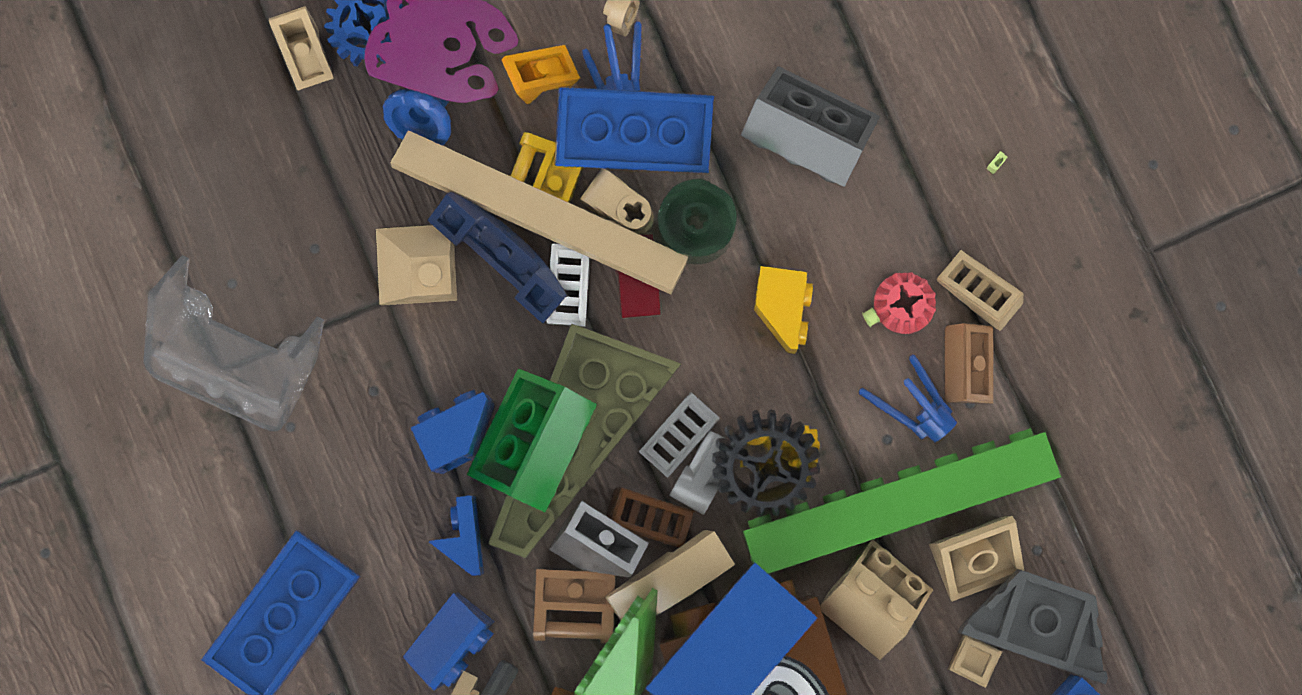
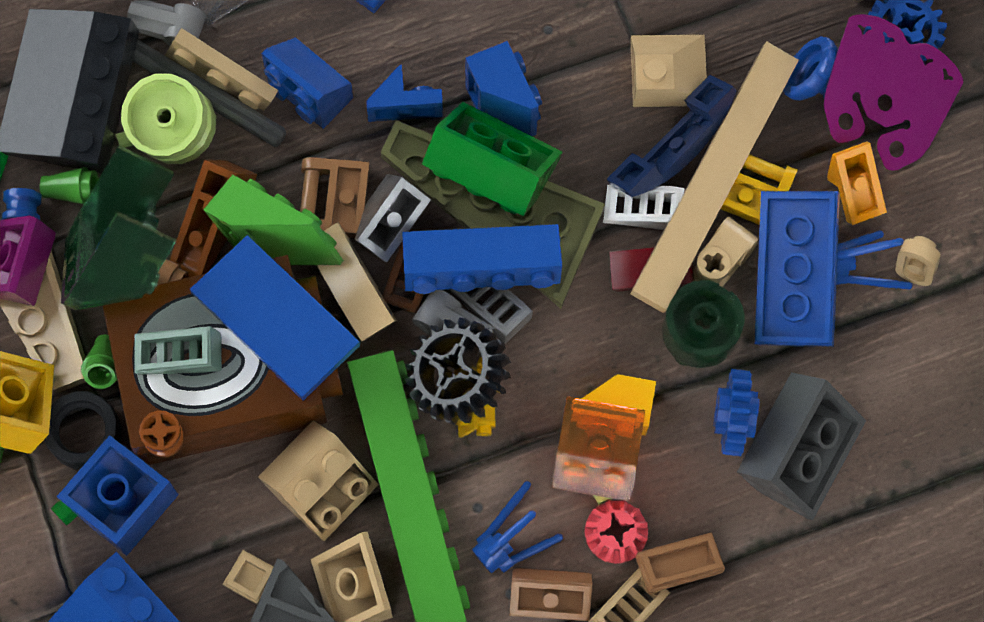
camera: 85 degrees right, 10 degrees down
(645, 444) = (482, 258): none -> blue brick
(789, 186) = (736, 412): none -> blue gear
(834, 320) = (598, 448): none -> clear orange slope
(933, 240) = (680, 562): none -> medium nougat tile

